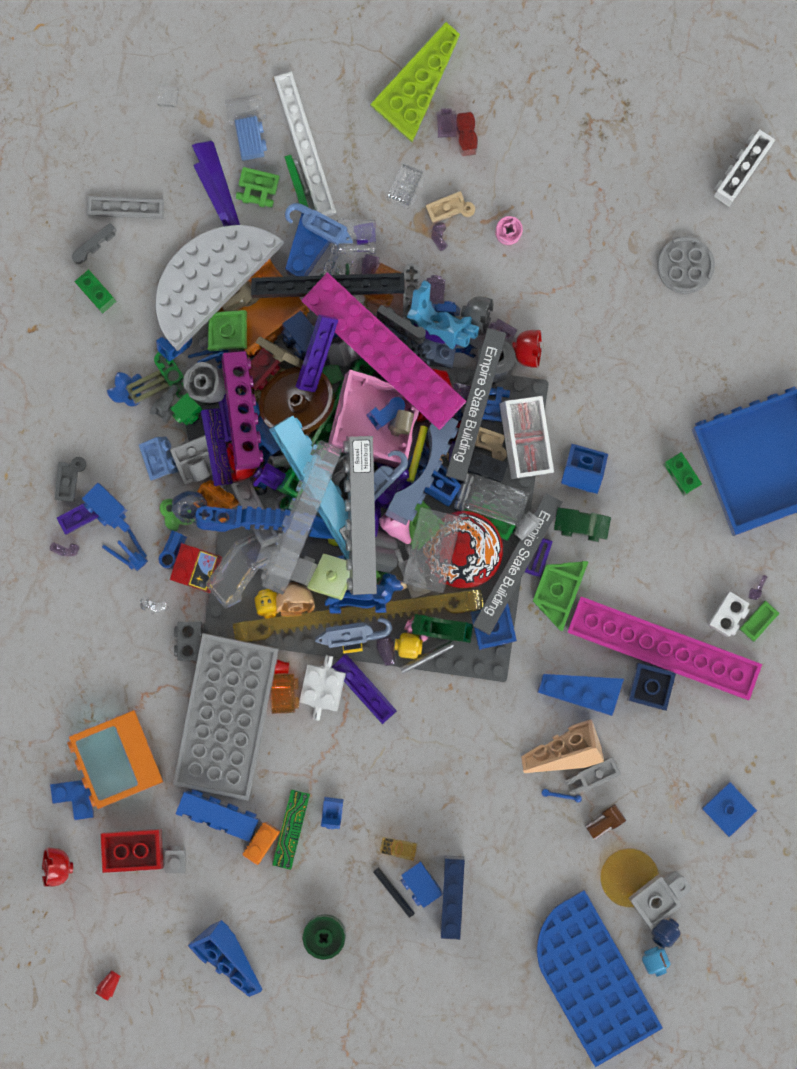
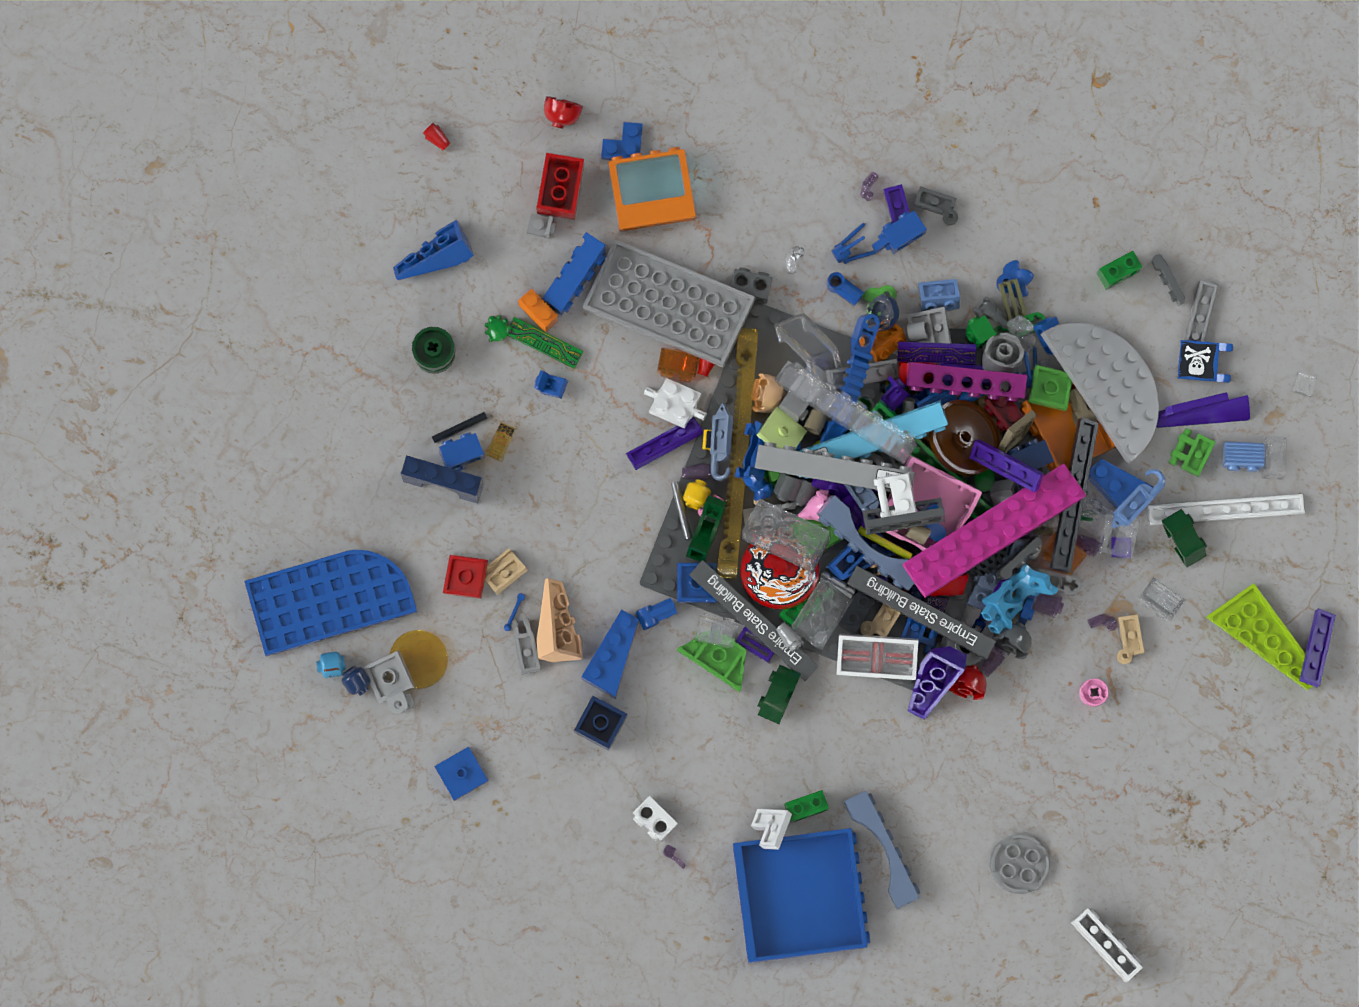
camera: 90 degrees right, 5 degrees down
(167, 197) = (1200, 361): none -> flag
(176, 369) = (1021, 329): none -> clear helmet
(194, 567) = (822, 305): slope -> none
(266, 603) = (769, 365): yellow head -> none
(287, 879) = (497, 328): none -> green piece
(295, 180) = (1187, 491): green tile -> none
(305, 189) = (1179, 500): light grey hinge -> none
(314, 547) = (815, 422): none -> dark tan piece
(346, 172) = (1188, 544): none -> dark green brick
(374, 443) = (901, 493): none -> white plate
(397, 434) = (907, 520): none -> dark grey fence
(418, 32) = (1317, 647): none -> dark purple plate
(446, 123) = (1218, 655): clear purple bracket -> none
(466, 131) = (1207, 673): clear red brick -> none
(525, 816) = (504, 571): none -> tan plate
(534, 662) = (652, 615): none -> blue piece
(535, 376) = (935, 677): none -> dark purple wedge
(538, 597) = (716, 631): none -> clear brick
(539, 851) = (465, 576): none -> red plate
(584, 468) = (834, 710): blue slope -> none
(610, 819) = (479, 651): reddish brown piece -> none
(664, 648) = (635, 747): dark pink plate -> none
(710, 497) = (774, 826): none -> white plate
(736, 370) = (900, 886): none -> sand blue arch
(759, 621) = (641, 849): bright green tile -> none

